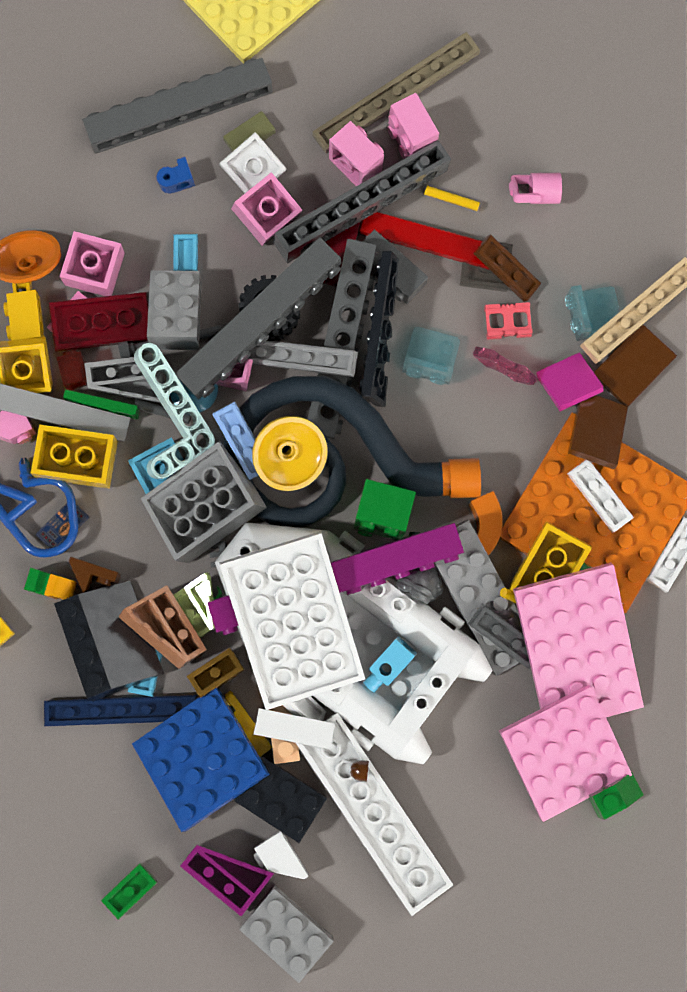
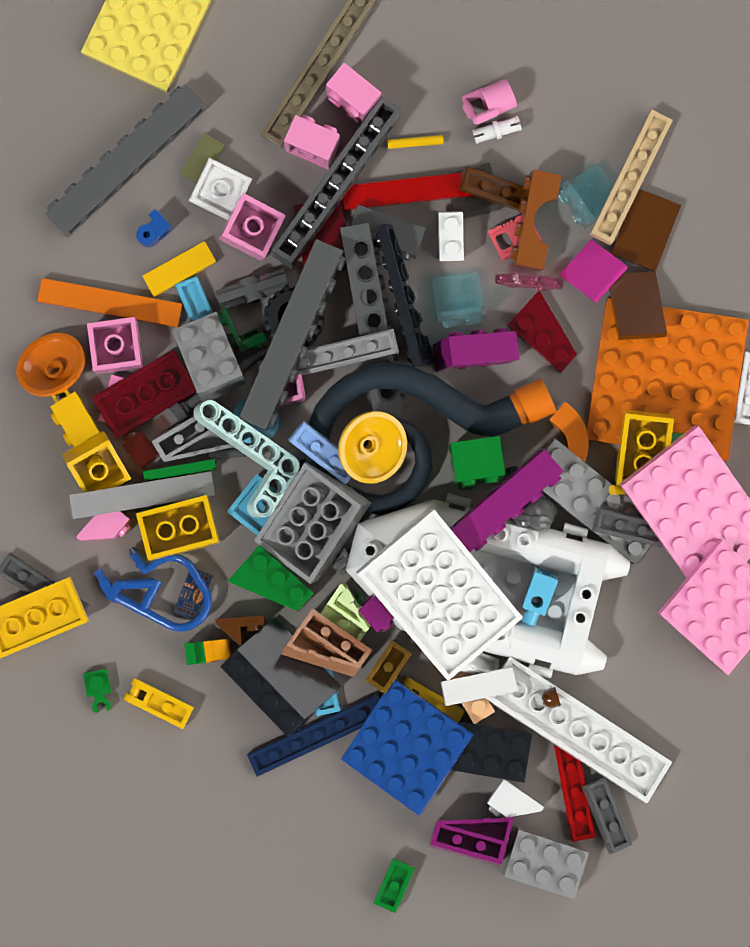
camera: 15 degrees left, 5 degrees up
(106, 225) = (109, 302): none -> orange tile
(140, 542) = (271, 580): none -> green wedge
(184, 222) = (179, 269): none -> yellow tile
(221, 312) = (251, 339): none -> dark green bracket
(241, 267) = (252, 289): none -> dark grey piece
(344, 878) = (575, 801): none -> red tile
(367, 911) = (607, 815): none -> dark grey tile
(428, 407) = (476, 349): none -> magenta wedge
(448, 293) = (450, 236): none -> white brick
(498, 420) = (543, 333): none -> dark red wing
(518, 336) = (529, 249): none -> dark orange arch
(532, 217) = (497, 129): none -> white pin
(600, 495) = (663, 365): white tile -> none

